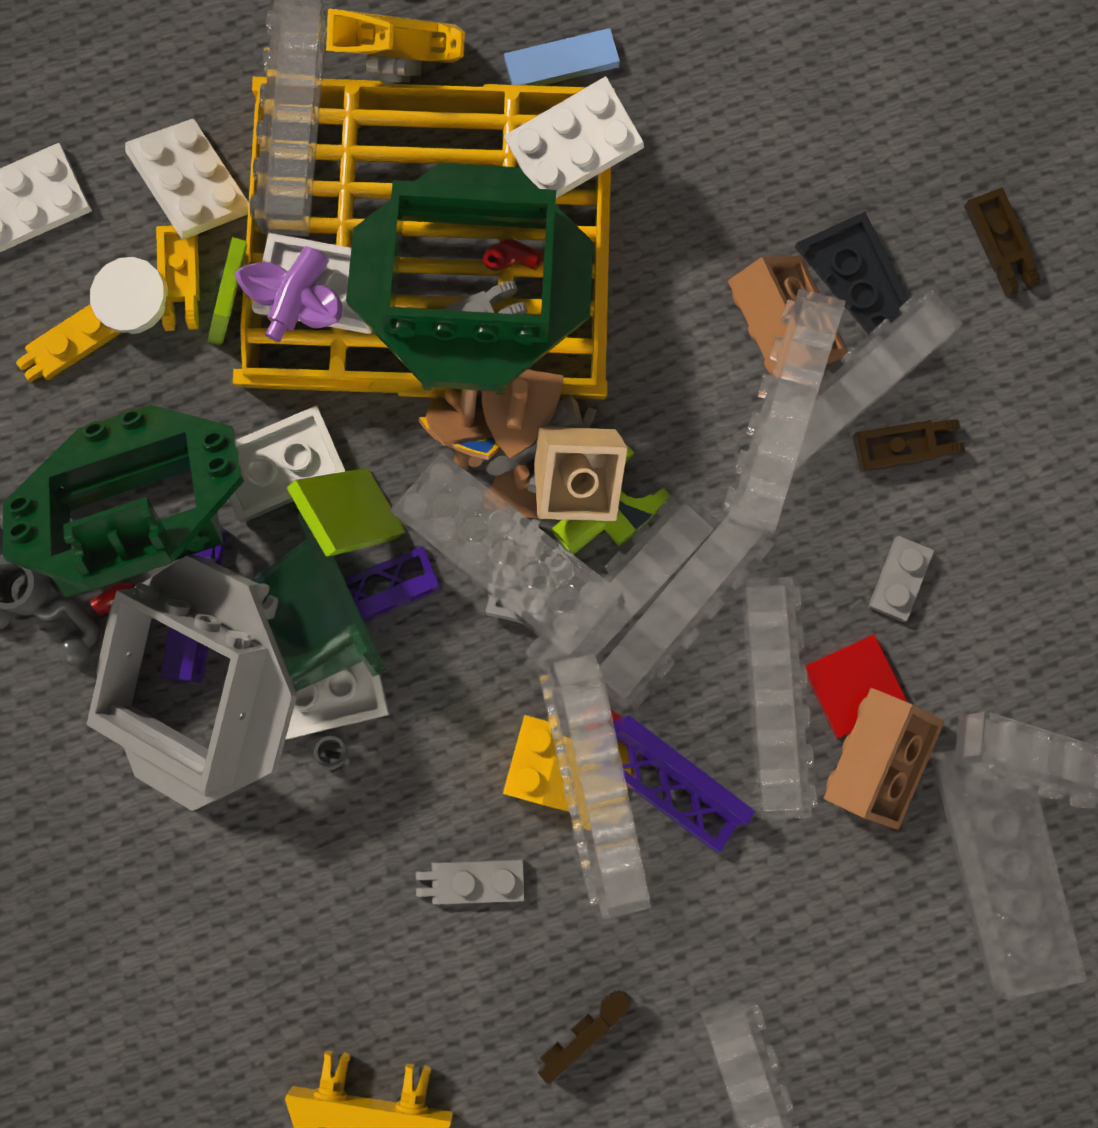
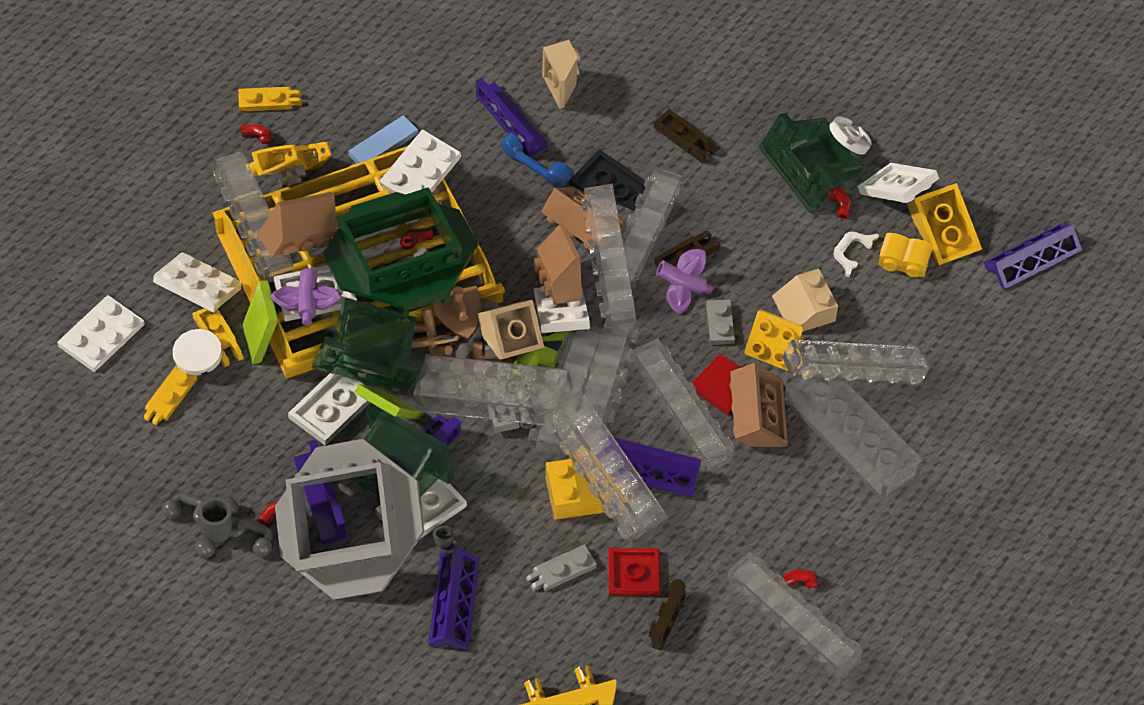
camera: 25 degrees left, 25 degrees down
(107, 461) = (280, 438): dark green hinge -> none
(289, 860) = (449, 594): none -> dark purple fence
(332, 169) = (299, 224): none -> medium nougat slope
(362, 404) = (370, 347): none -> clear green windscreen
(572, 936) = (634, 571): none -> red tile
(676, 460) = (560, 316): none -> white plate
(702, 396) = (559, 267): none -> medium nougat slope
(763, 99) = (510, 117): none -> dark purple fence
(782, 226) = (557, 174): none -> blue piece
(810, 1060) = (801, 575): none -> red arm
(873, 54) = (560, 70): none -> tan slope
(882, 489) = (684, 279): none -> medium lavender plant
(964, 655) = (771, 338): none -> yellow bracket
(1044, 608) = (807, 300): none -> tan slope

